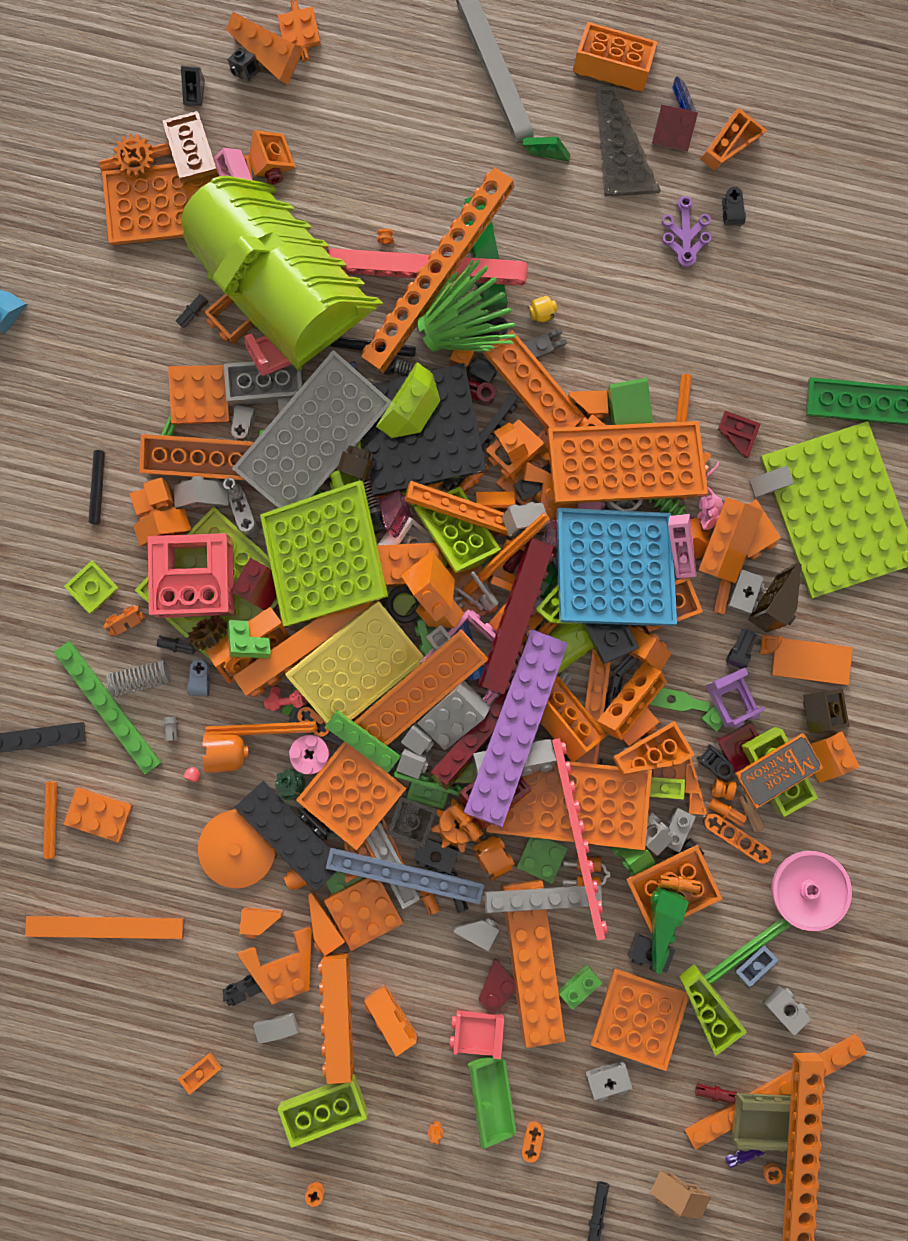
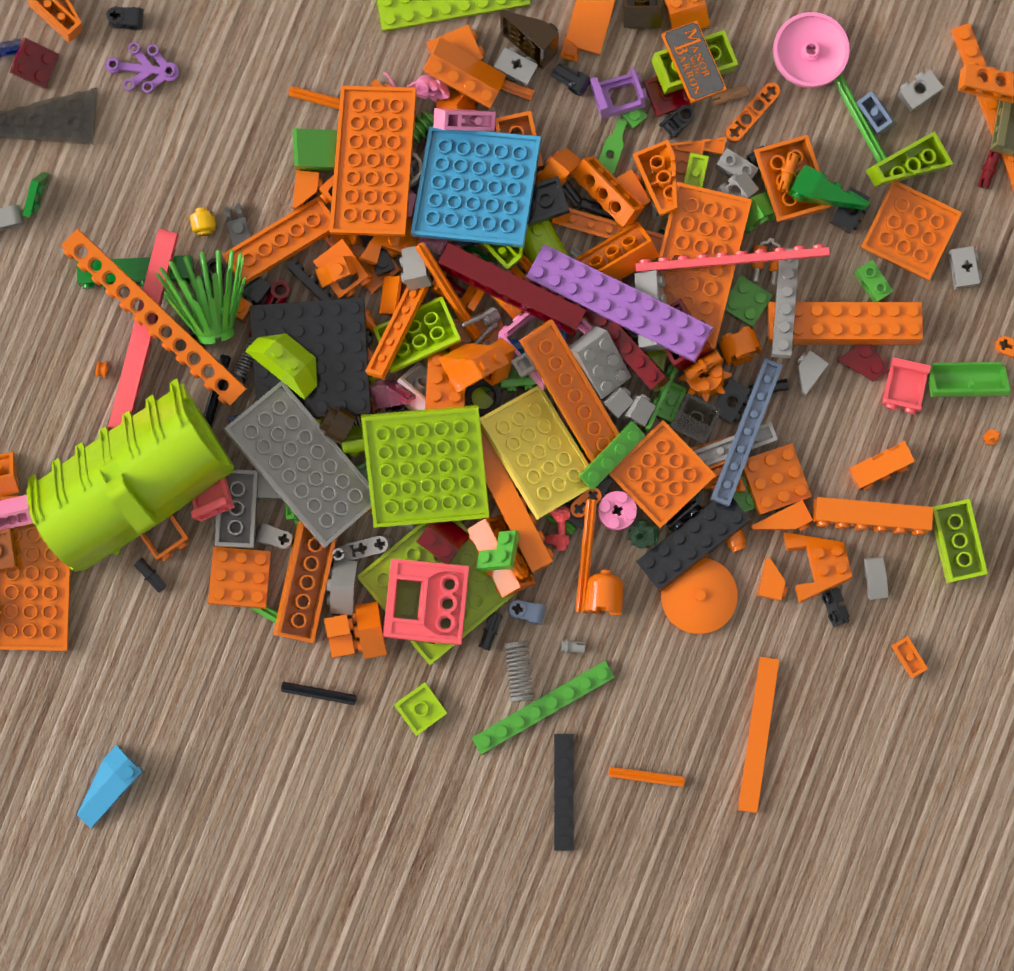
camera: 80 degrees left, 0 degrees up
(98, 814) = (647, 728): orange plate -> none
(129, 615) = (460, 689): orange hinge -> none
(192, 774) = (621, 630): coral hinge -> none
(207, 633) = (485, 593): dark brown gear -> none
(273, 176) = (21, 474): dark red bush -> none
(430, 902) = (775, 414): orange axle -> none
(724, 789) = (704, 117): orange wheel -> none
(727, 812) = (726, 117): orange axle -> none
(739, 432) = (355, 48): dark red wing -> none
(771, 481) = (410, 24): light grey slope -> none

